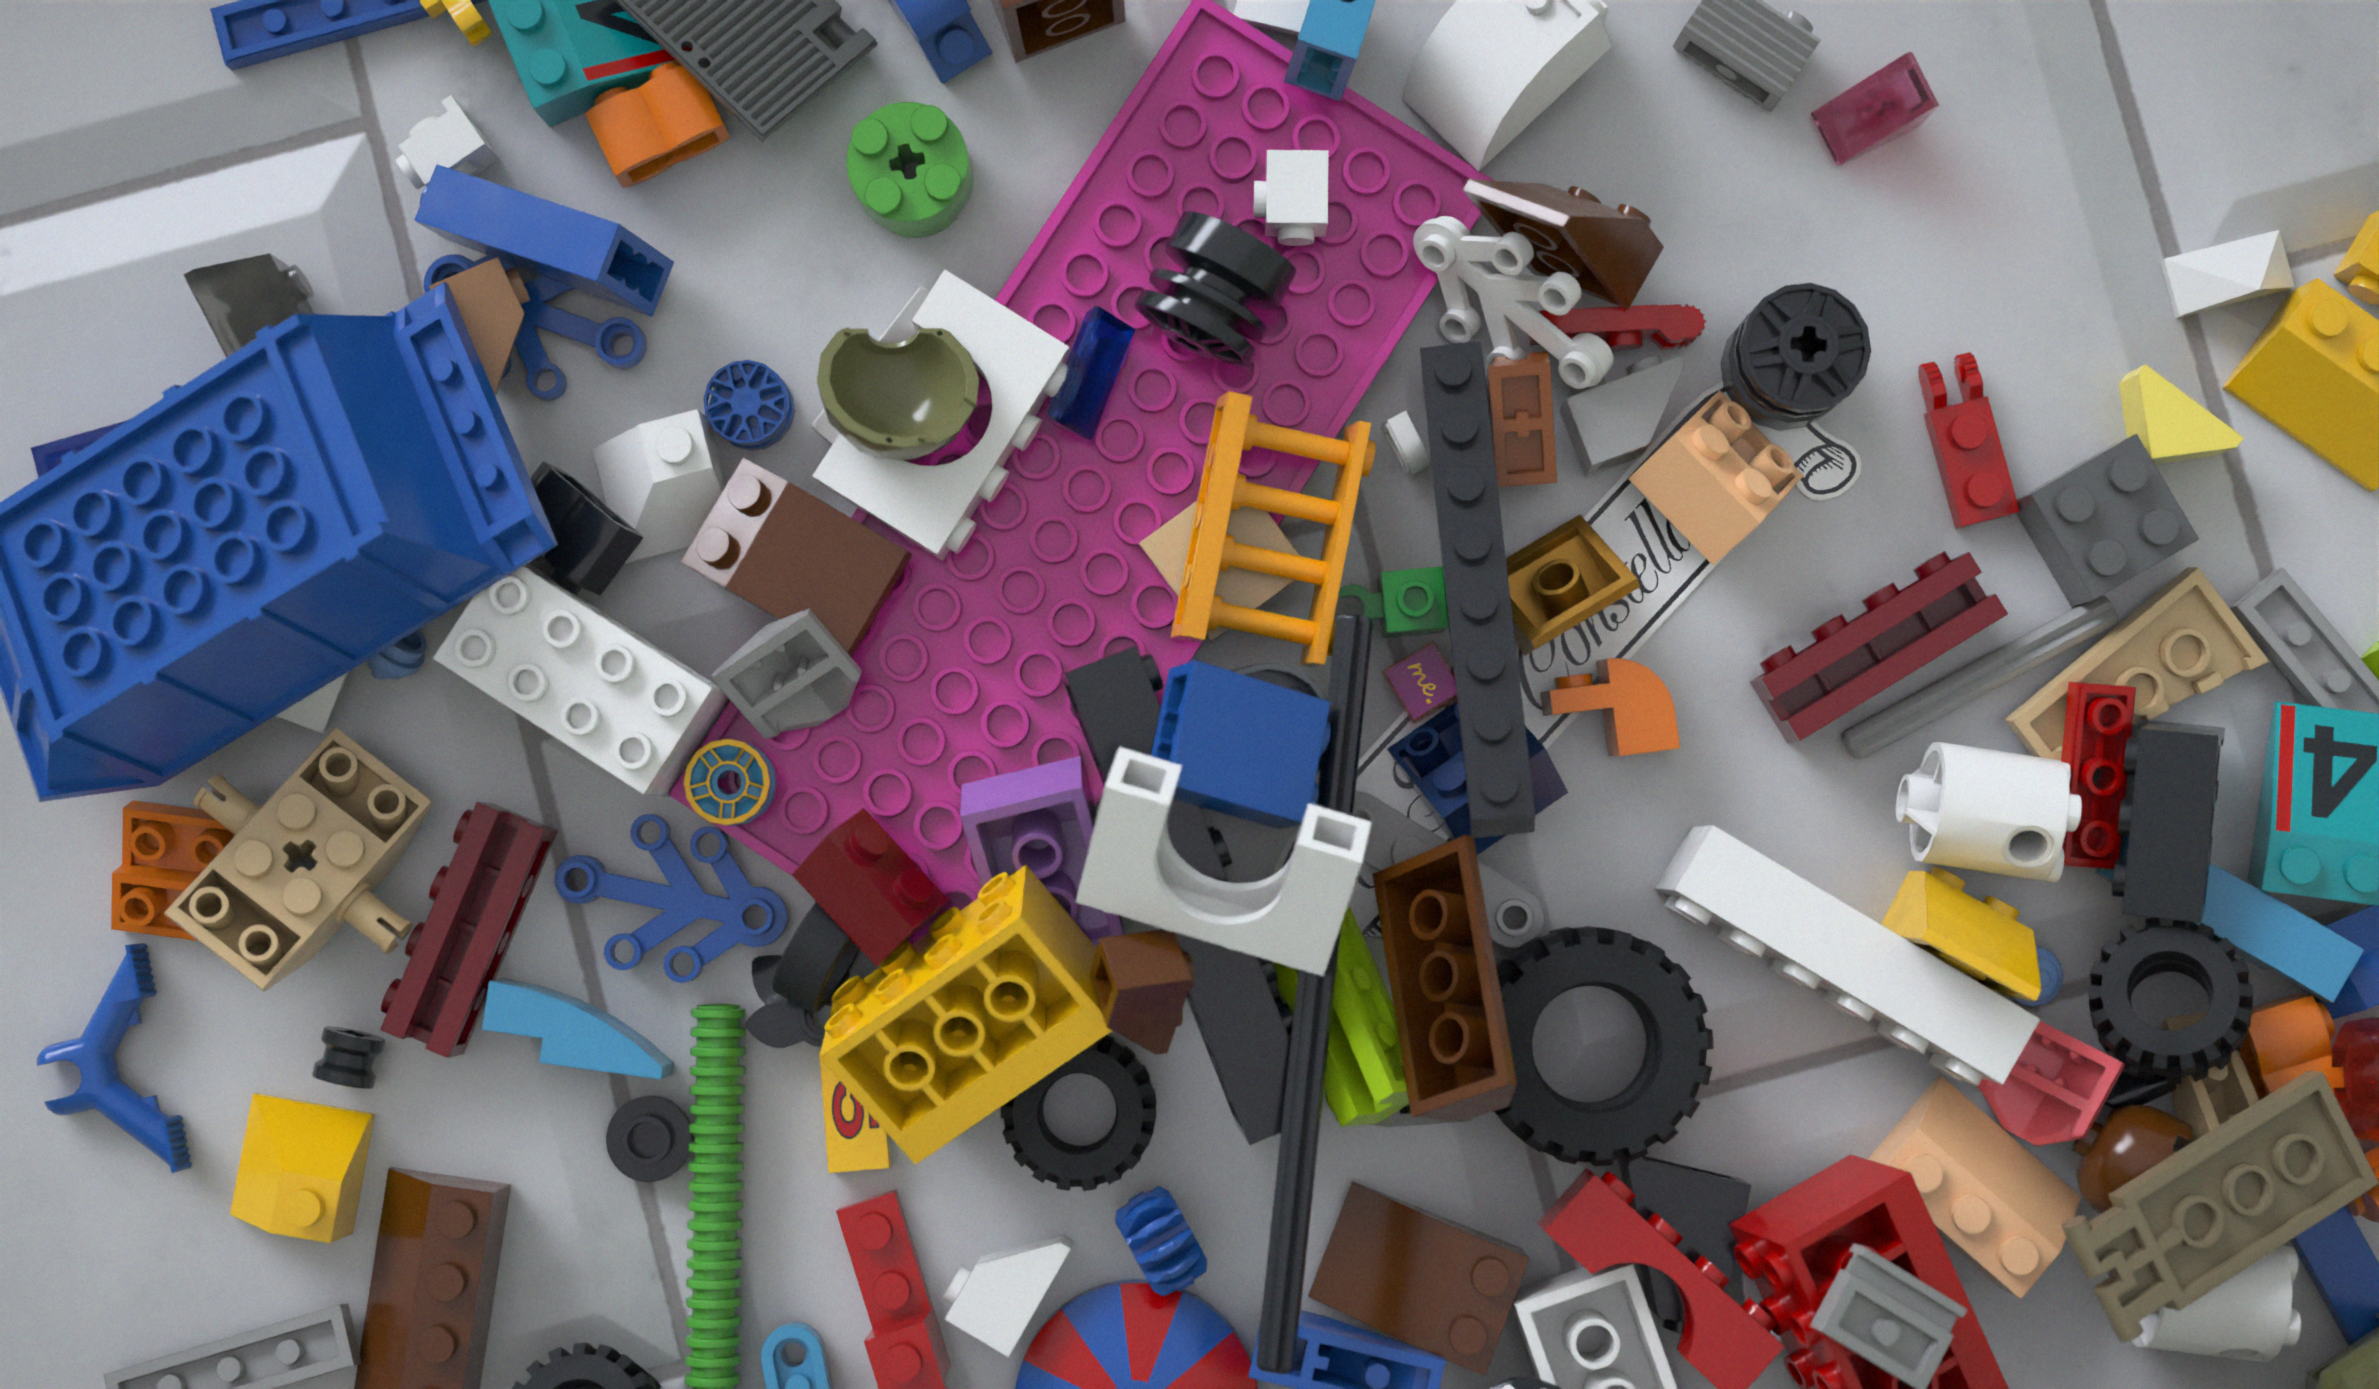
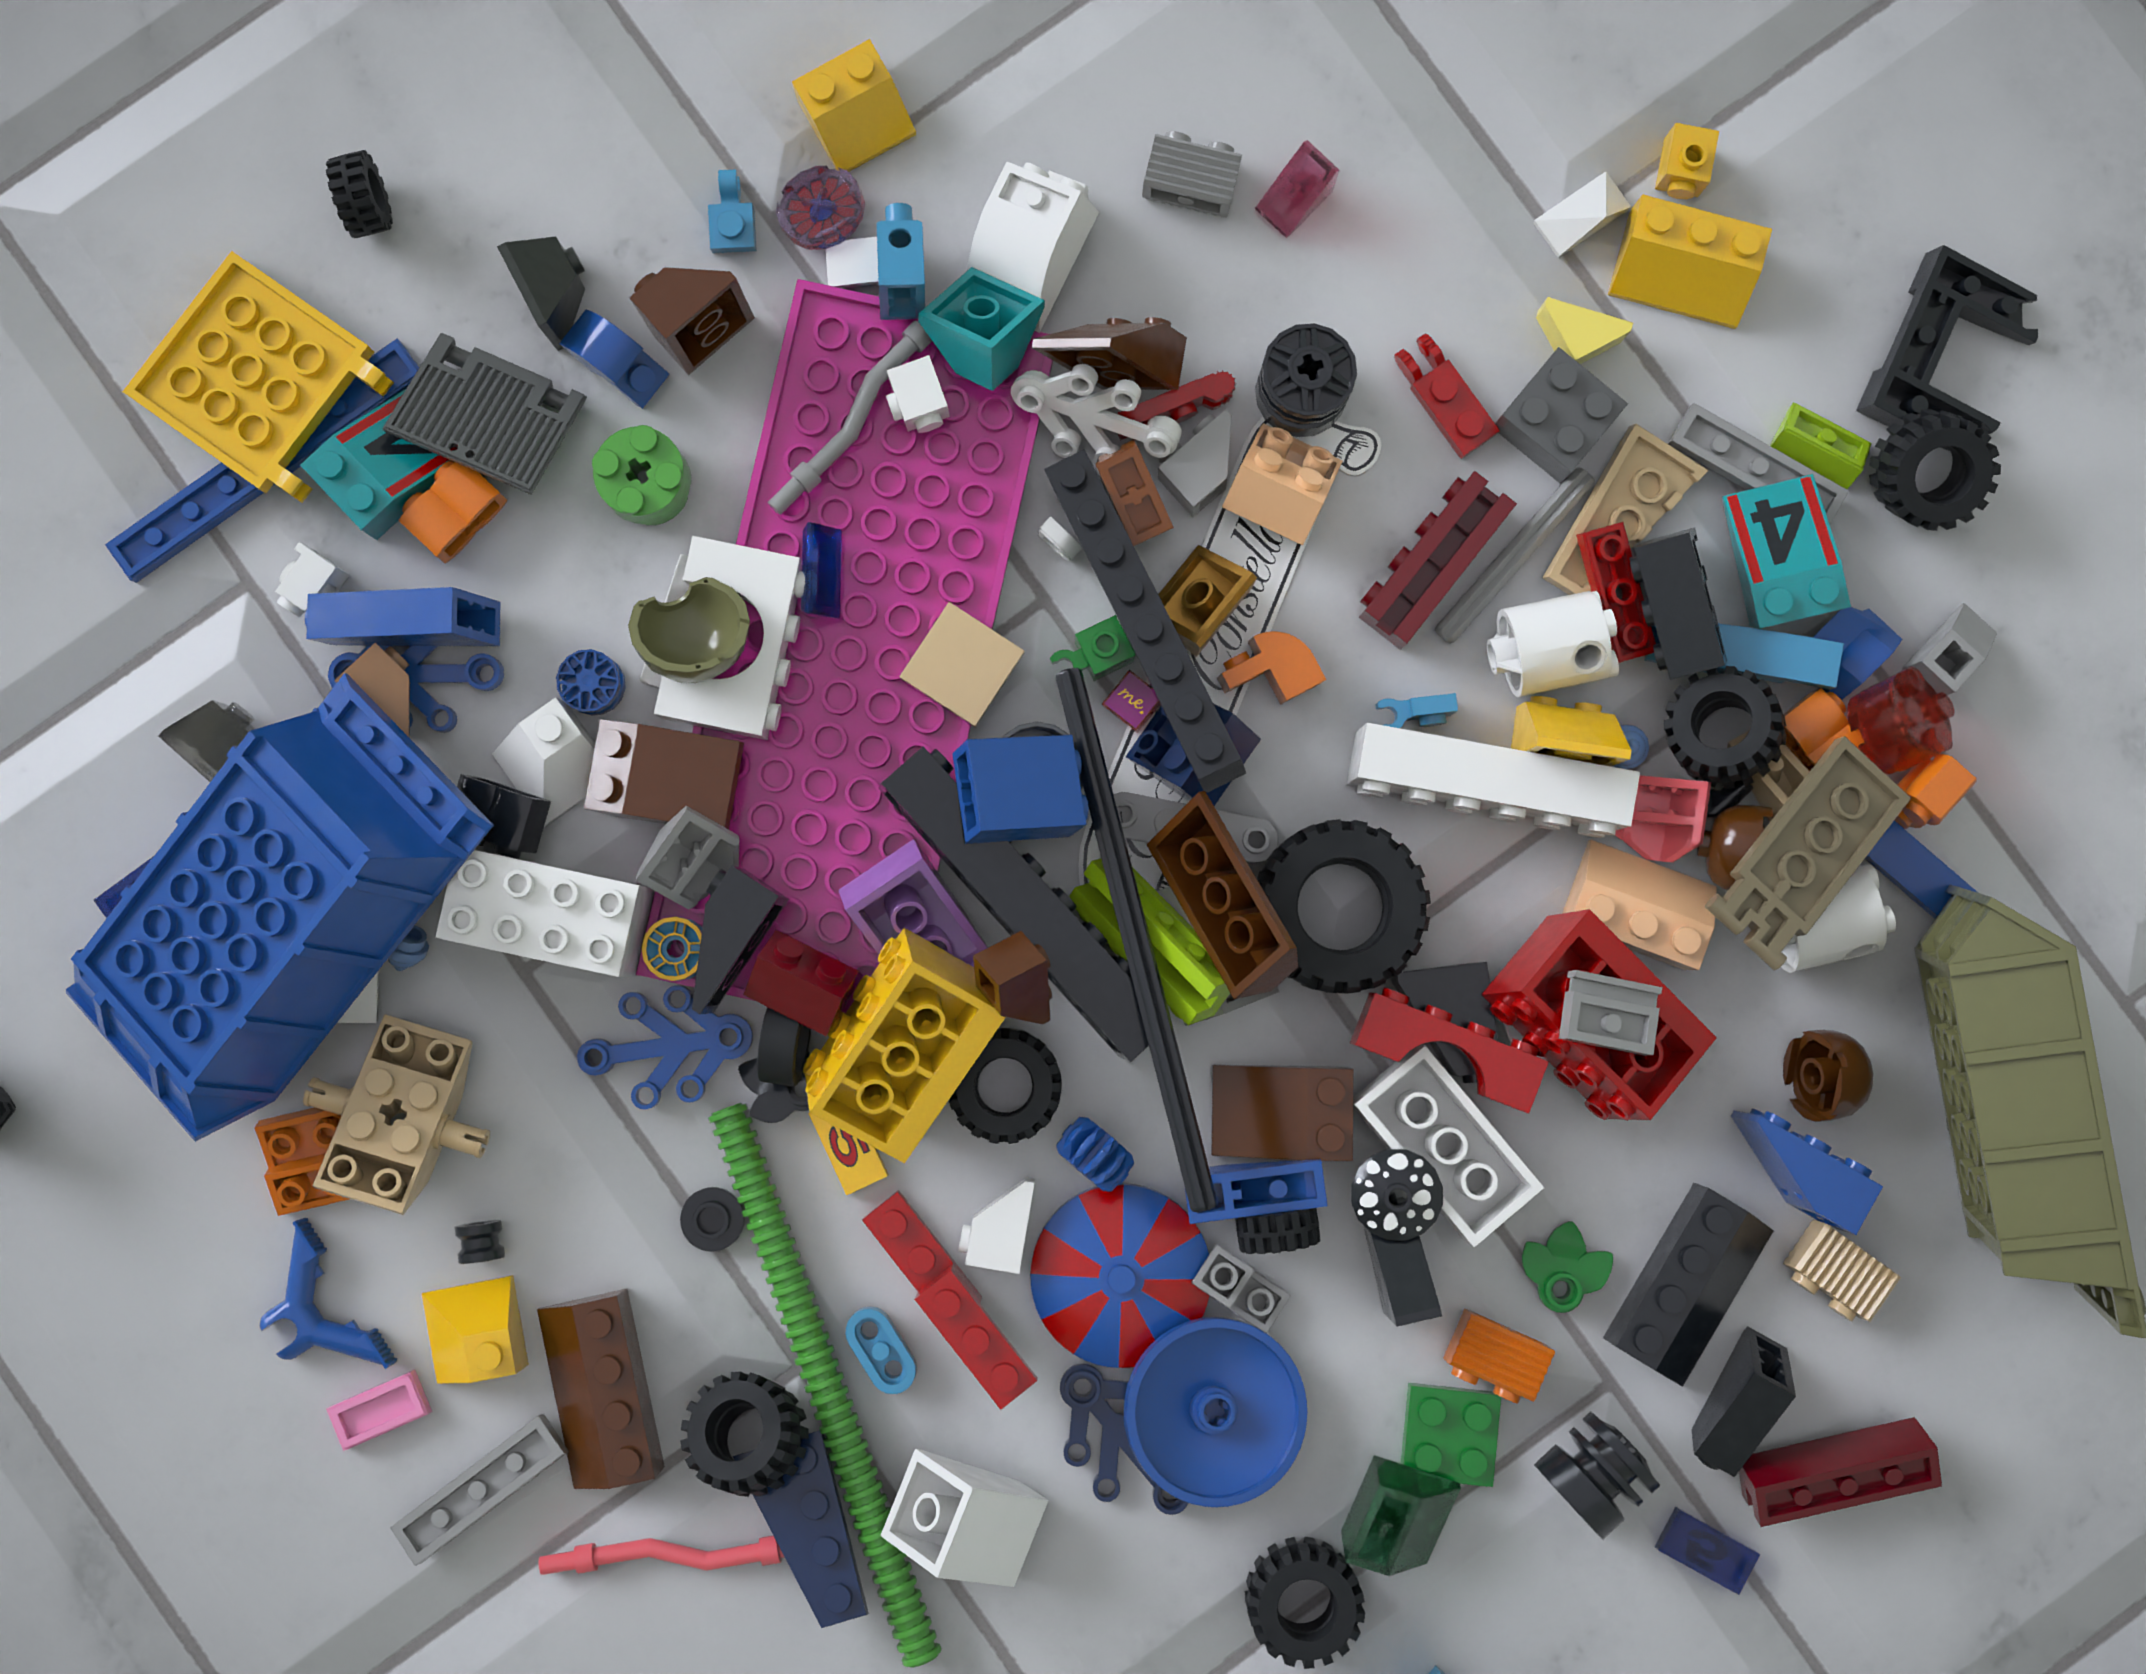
camera: 30 degrees left, 0 degrees up
(145, 1220) = (379, 1410): none -> bright pink tile
(467, 929) = (529, 1120): dark red brick -> none
(571, 1030) = (629, 1164): dark azure slope -> none
(812, 782) = (732, 929): none -> black slope
(1143, 878) = (986, 903): white arch -> none
(1220, 279) = (887, 469): black wheel -> none
(1226, 490) = (953, 661): light orange fence -> none
(1318, 122) = (806, 475): none -> light grey bar
(1409, 138) = (982, 326): none -> teal slope
(1795, 834) = (1426, 709): none -> dark azure plate

